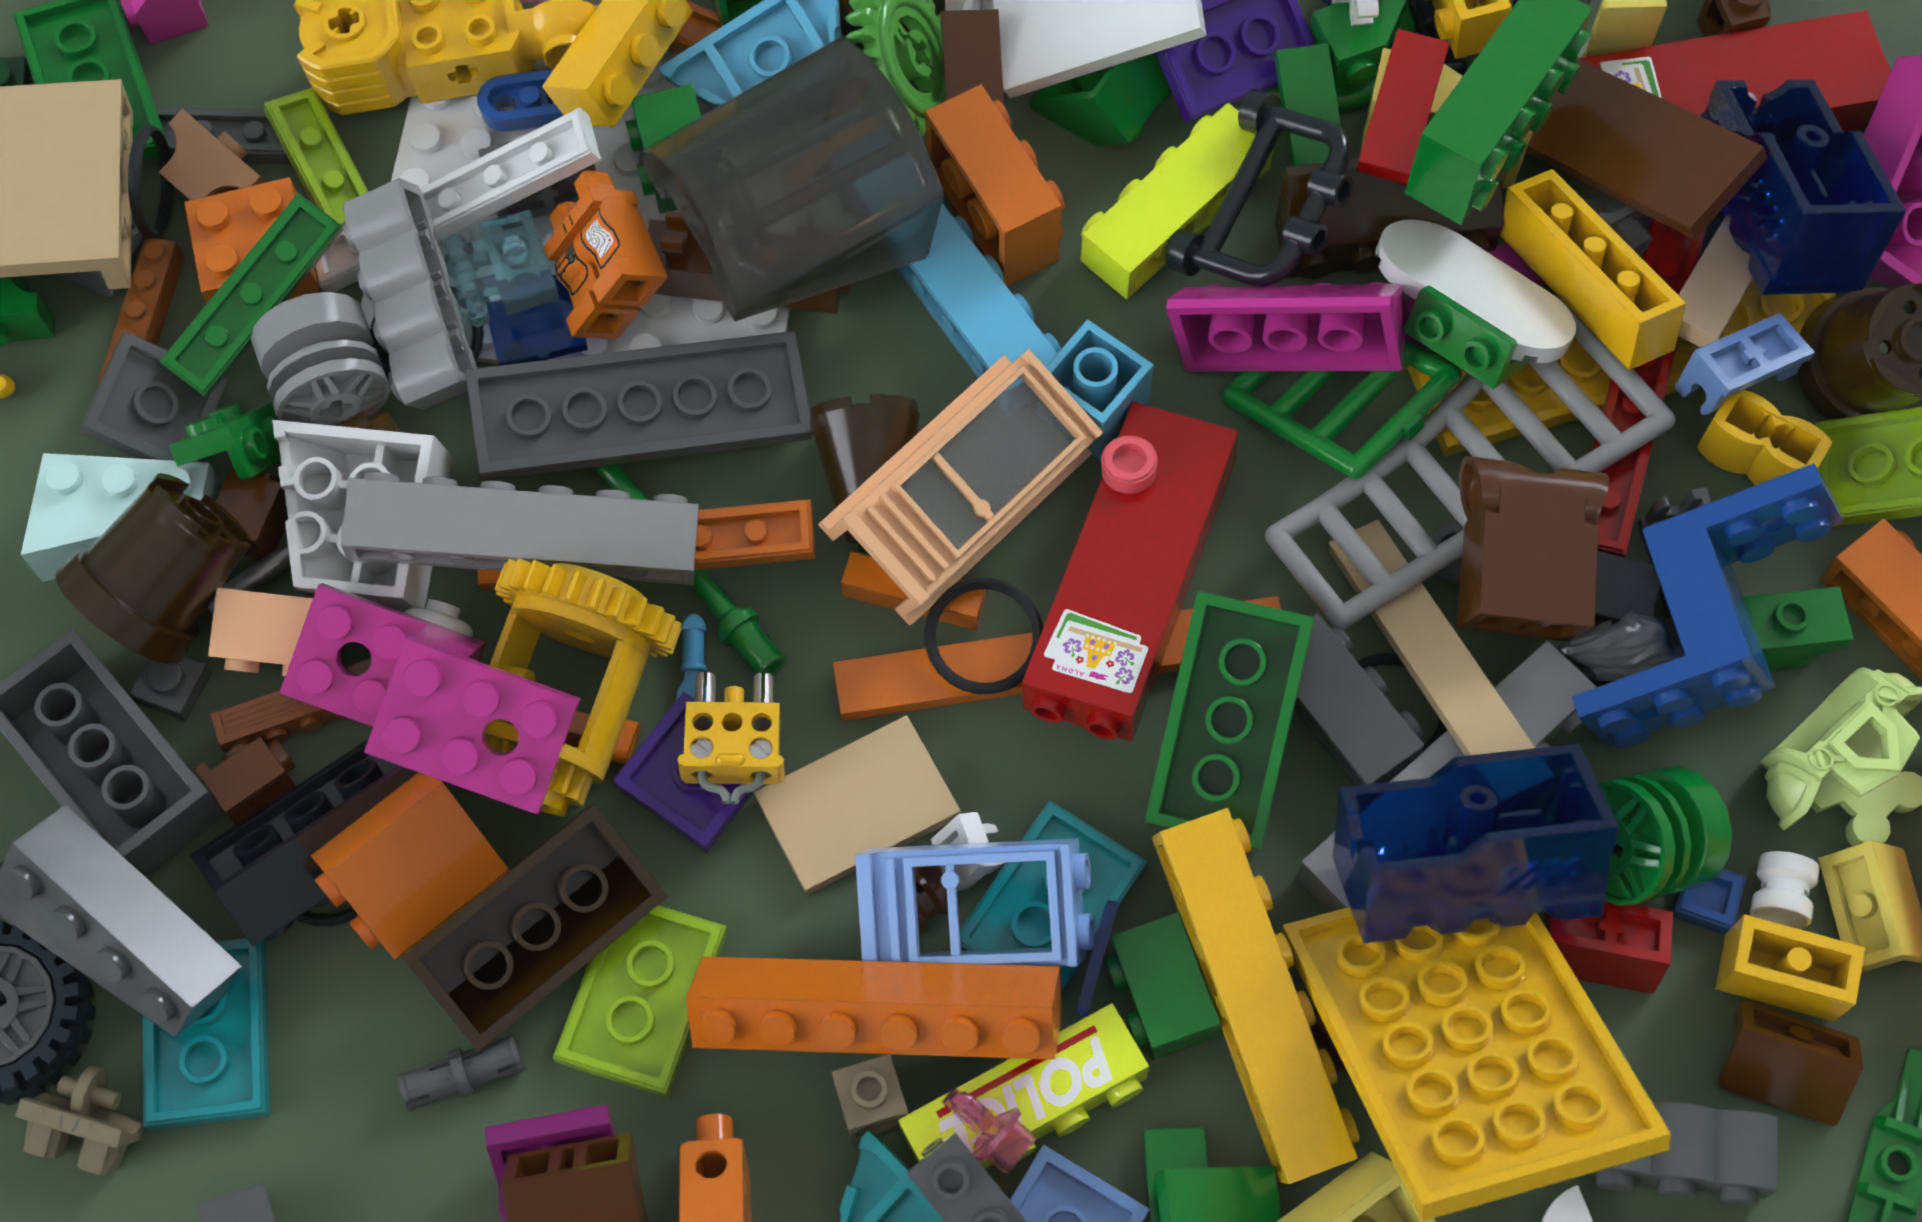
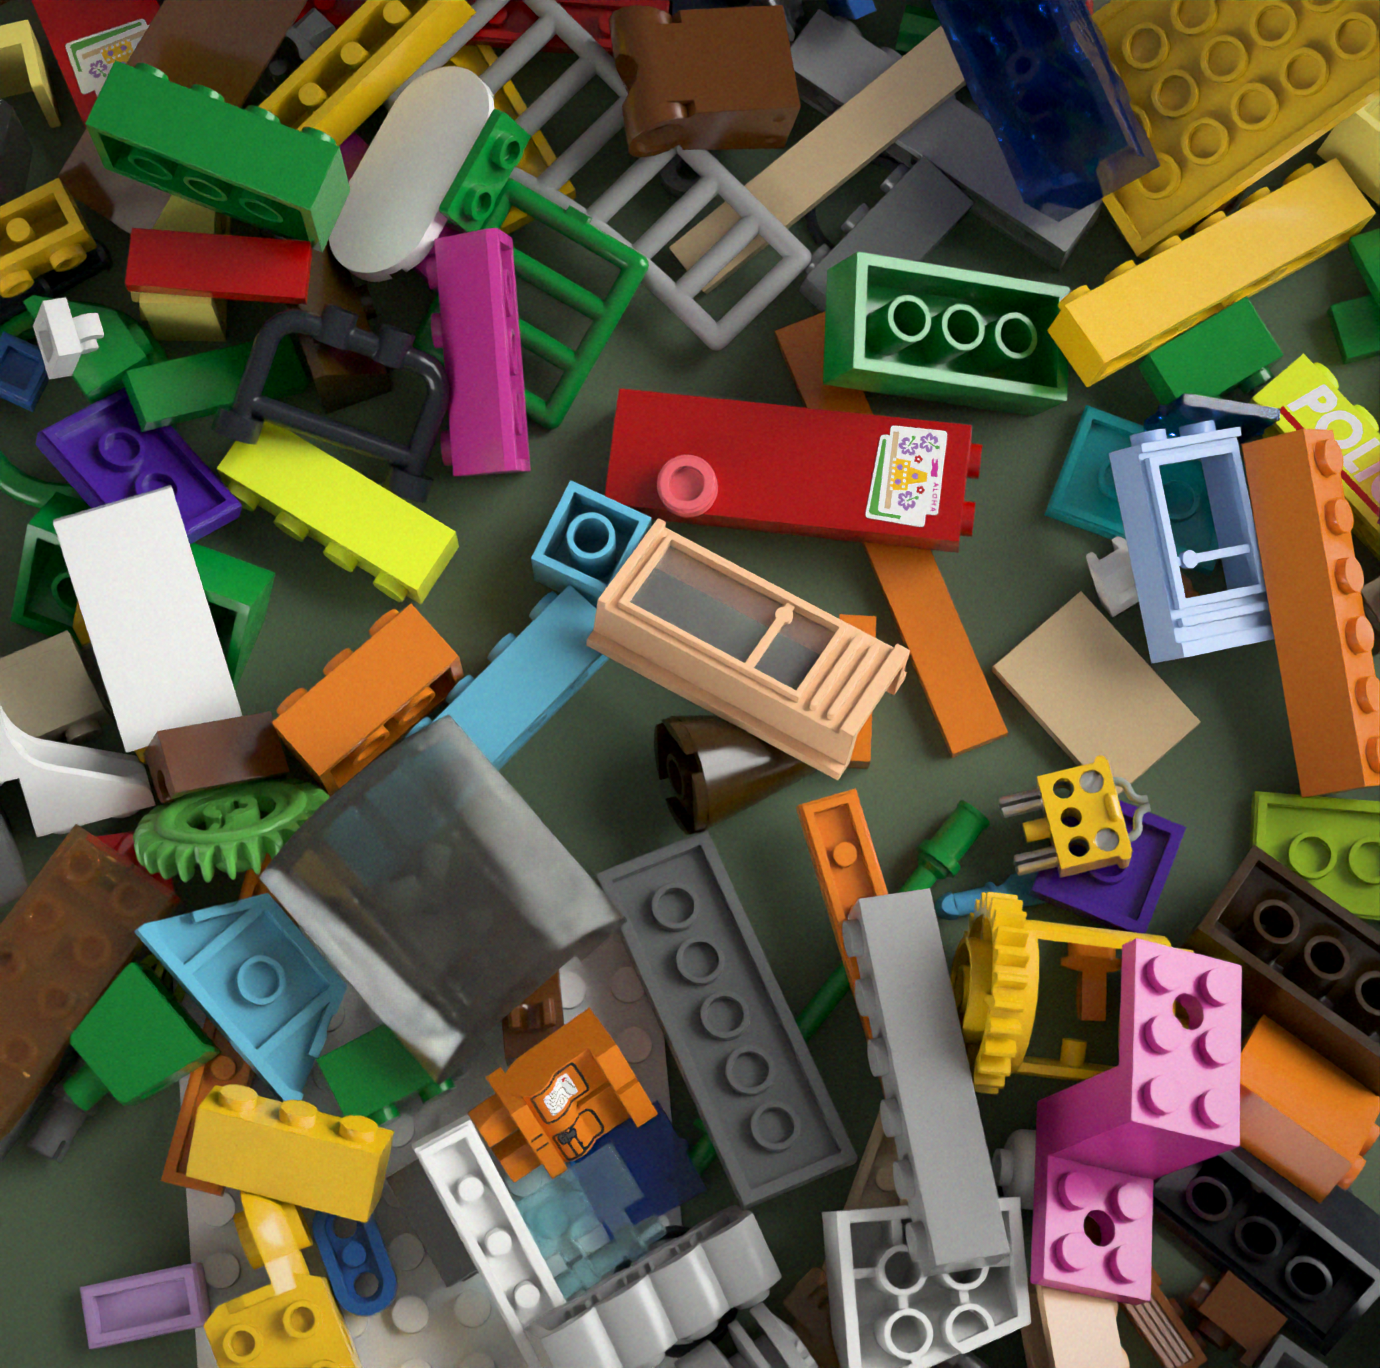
camera: 105 degrees left, 10 degrees up
(935, 613) = (924, 559): black tyre -> none

